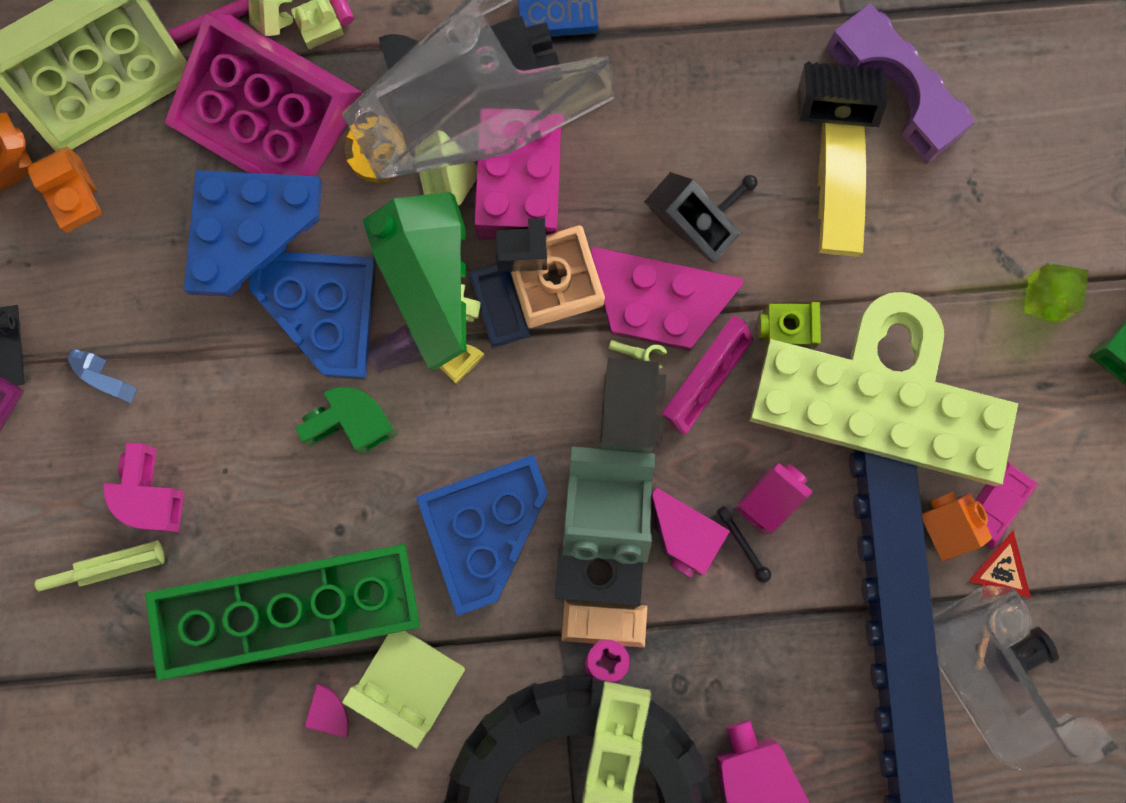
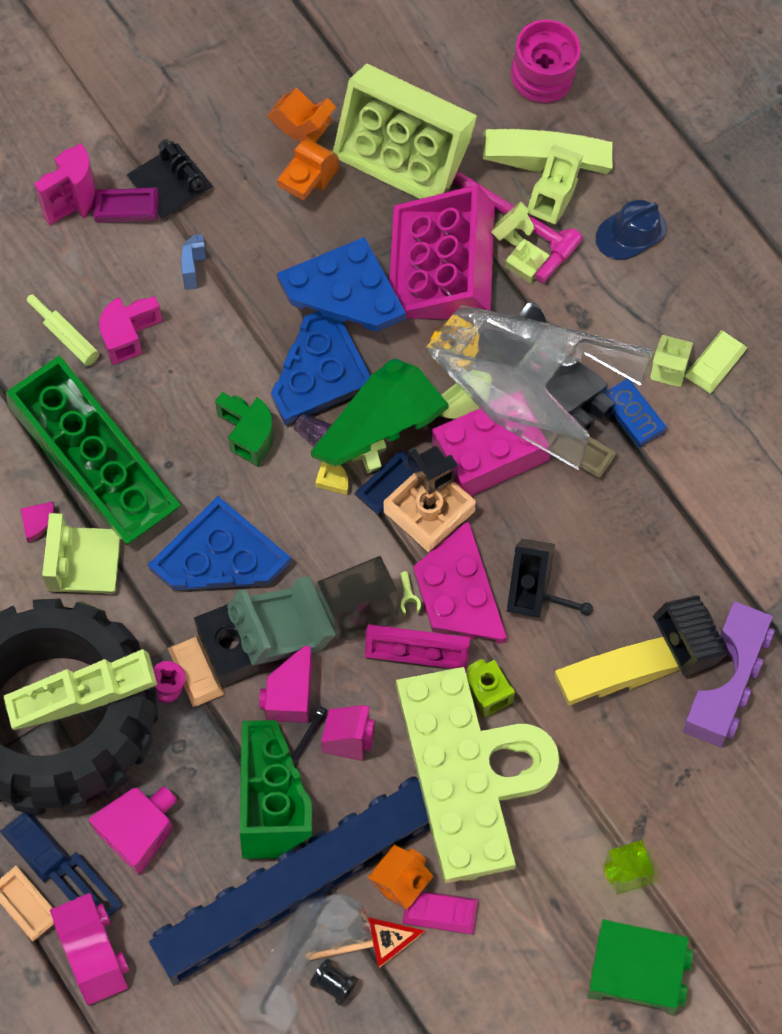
camera: 65 degrees right, 15 degrees down
(805, 616) = (272, 797): none -> green wedge

